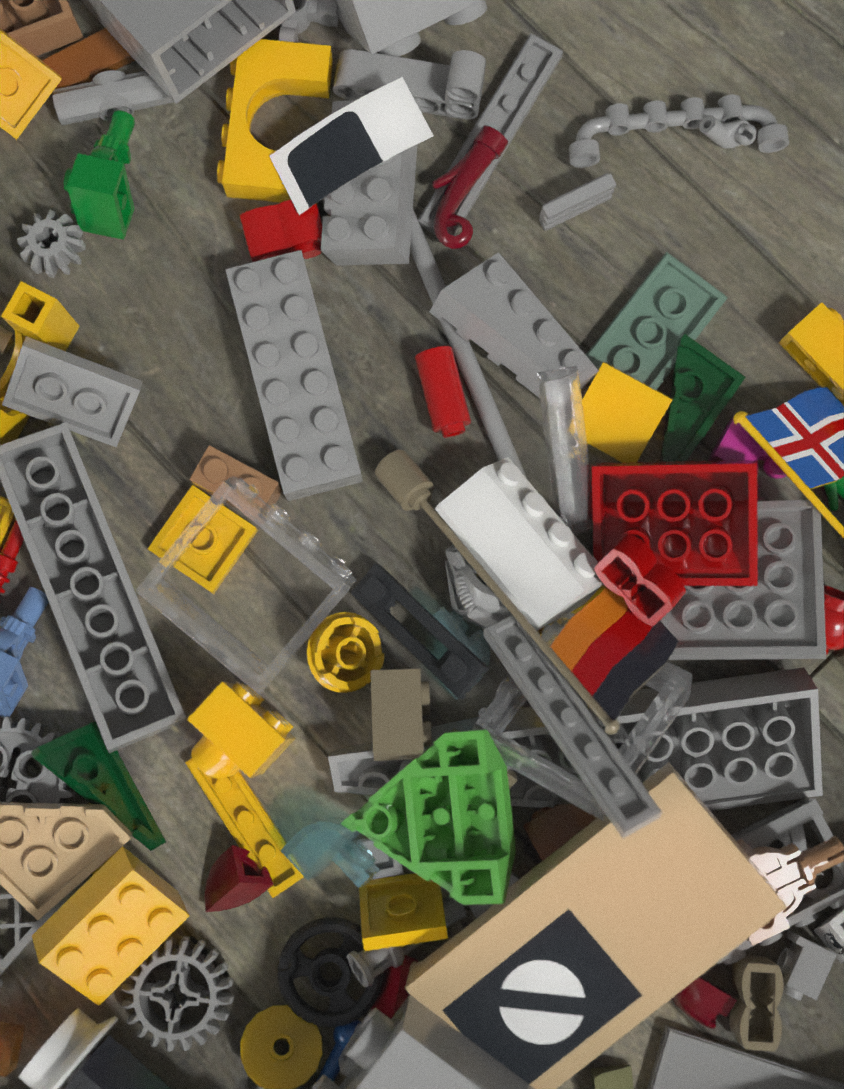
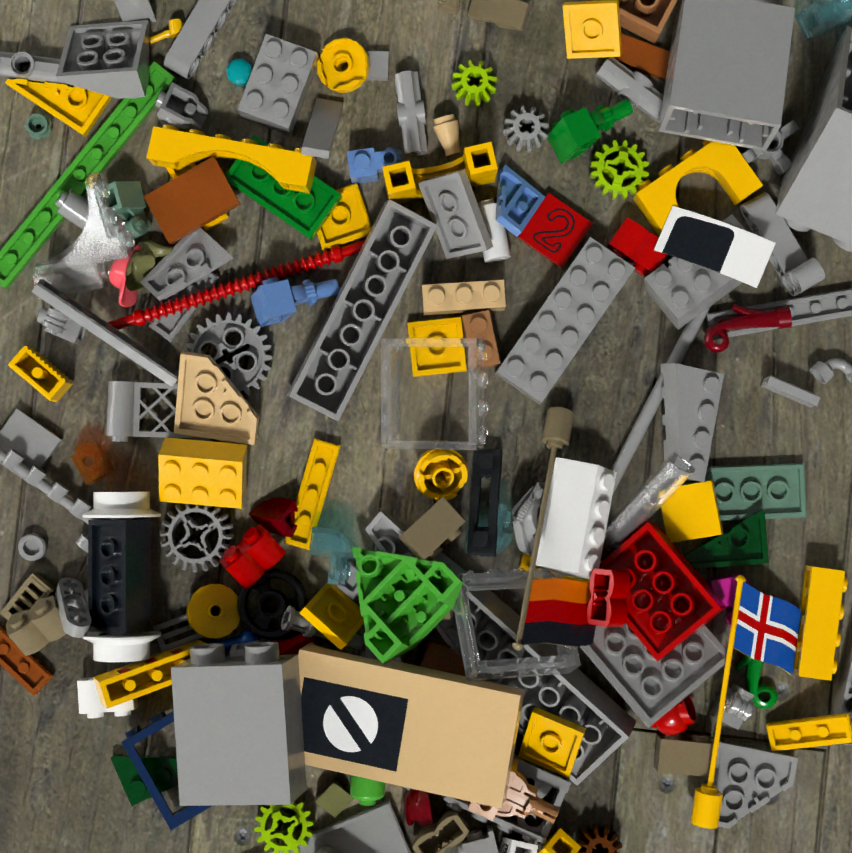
camera: 50 degrees right, 5 degrees up
(100, 778) = (270, 403): dark green wing -> none
(117, 318) = (515, 201): none -> medium blue wing
(156, 380) = (496, 231): none -> white brick
(171, 463) = (463, 297): none -> tan brick
(188, 305) = (555, 230): none -> red tile
(192, 168) = (608, 168): none -> lime gear
(238, 733) = (353, 455): yellow piece -> none
(255, 949) = (252, 556): none -> red brick
(443, 391) = (623, 407): red brick -> none
(573, 728) = (501, 625): light grey tile -> none
(636, 1046) = (366, 790): none -> bright green head
(751, 782) = (552, 742): none -> yellow tile

